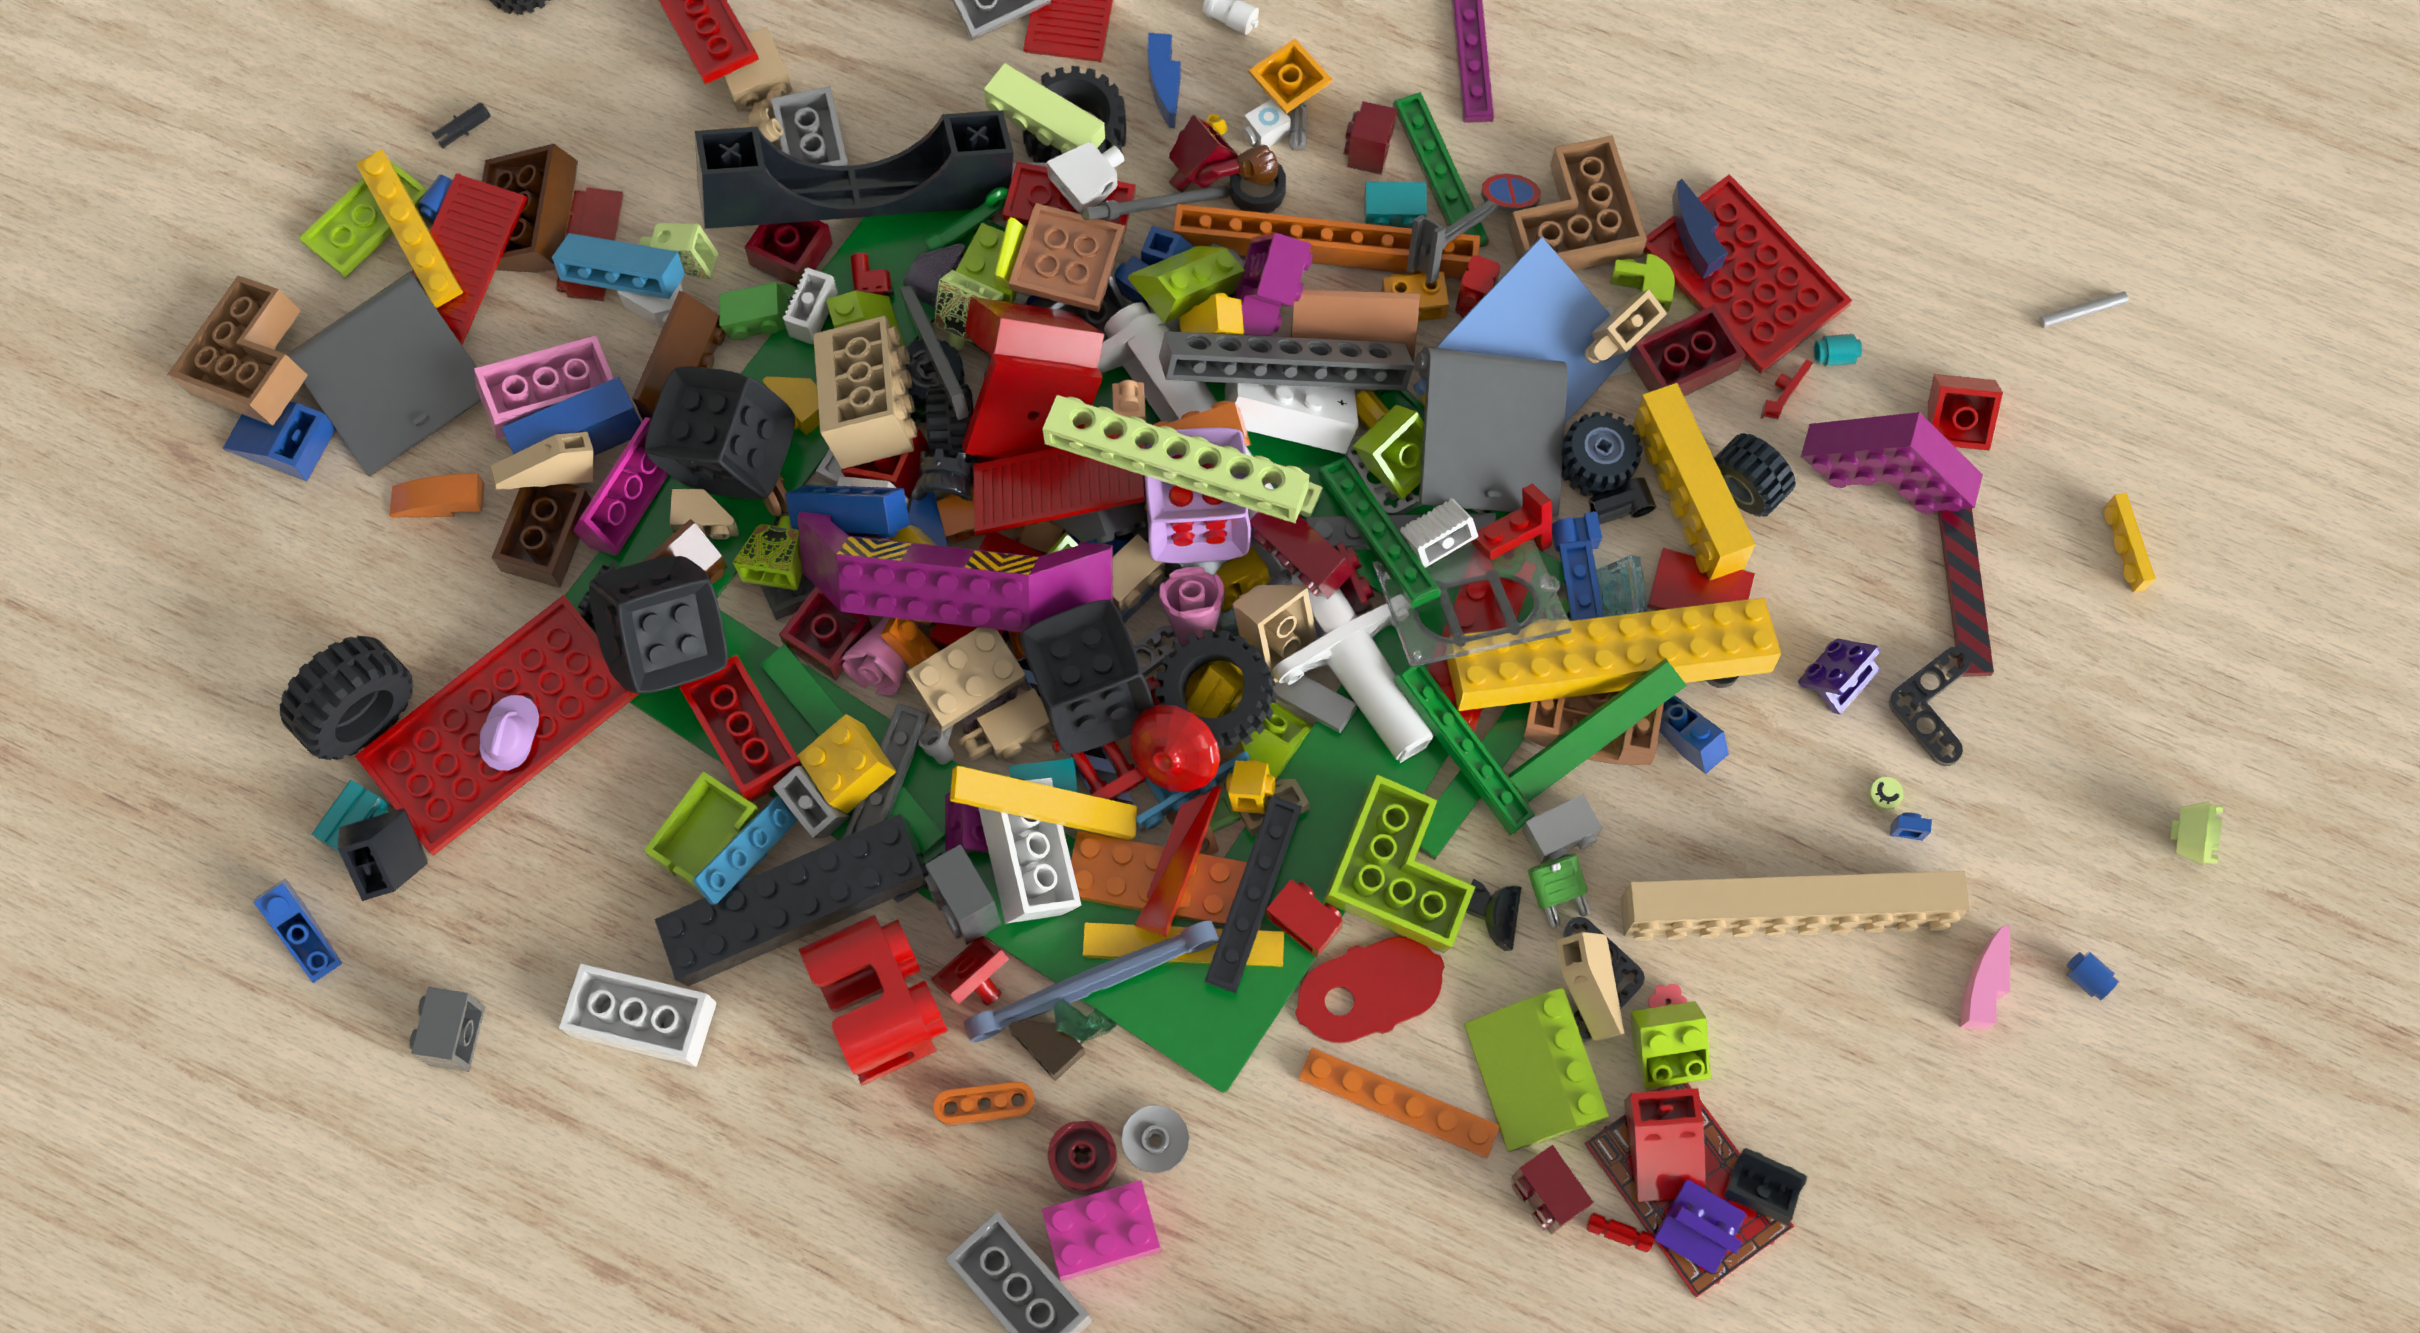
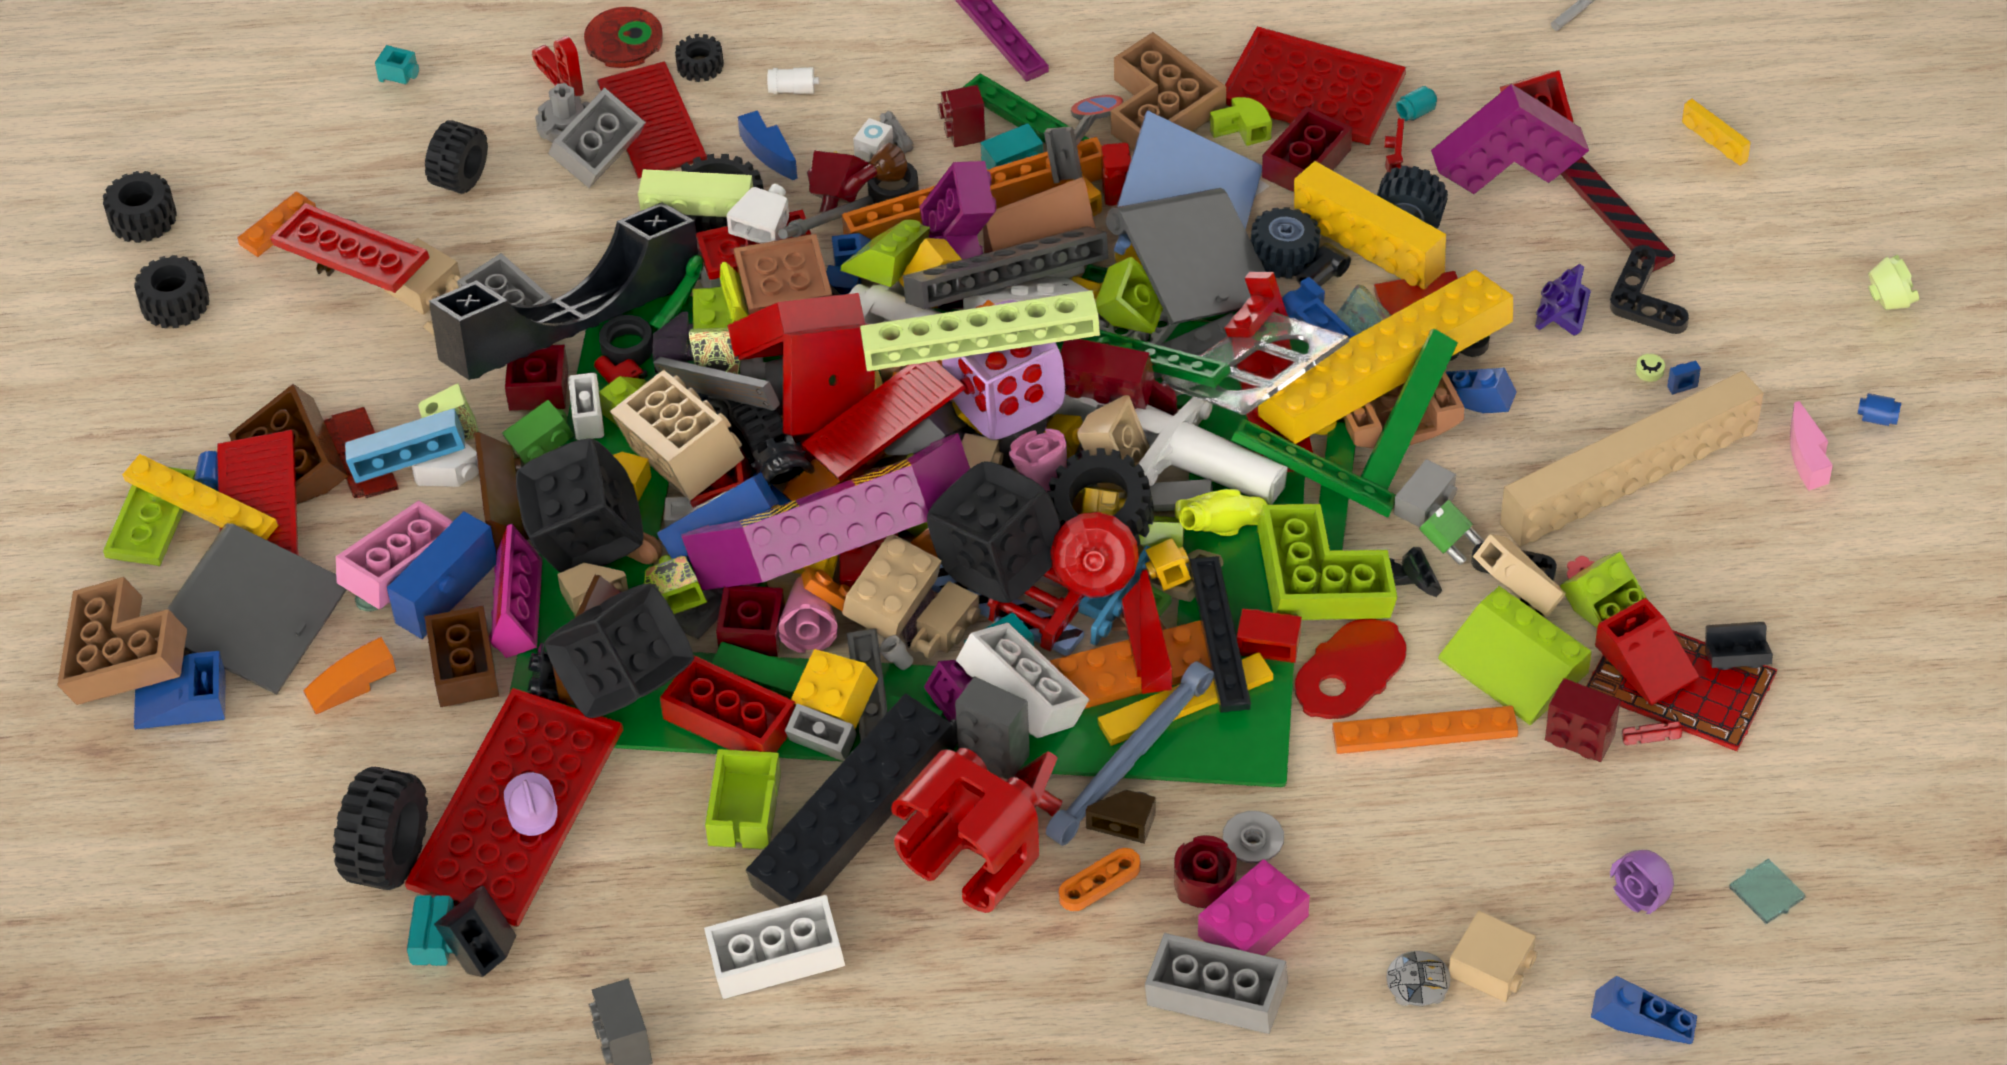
camera: 25 degrees left, 20 degrees down
(297, 930) = (436, 1026): blue slope -> none
(462, 124) = (192, 417): black axle -> none
(549, 462) = (448, 589): tan slope -> none
(744, 851) = (789, 787): dark azure bracket -> none
(890, 225) = (626, 325): none -> black tyre
(1043, 803) = (1016, 634): yellow tile -> none
(1080, 1026) = (1151, 782): clear green slope -> none
(1290, 76) = (873, 96): light orange slope -> none
(1337, 749) = (1219, 511): none -> neon yellow animal
(1439, 532) = (1201, 331): white brick -> none
(1625, 327) = (1248, 147): tan brick -> none
(1697, 231) = (1259, 67): dark blue slope -> none
(1701, 1226) = (1710, 694): dark purple bracket -> none

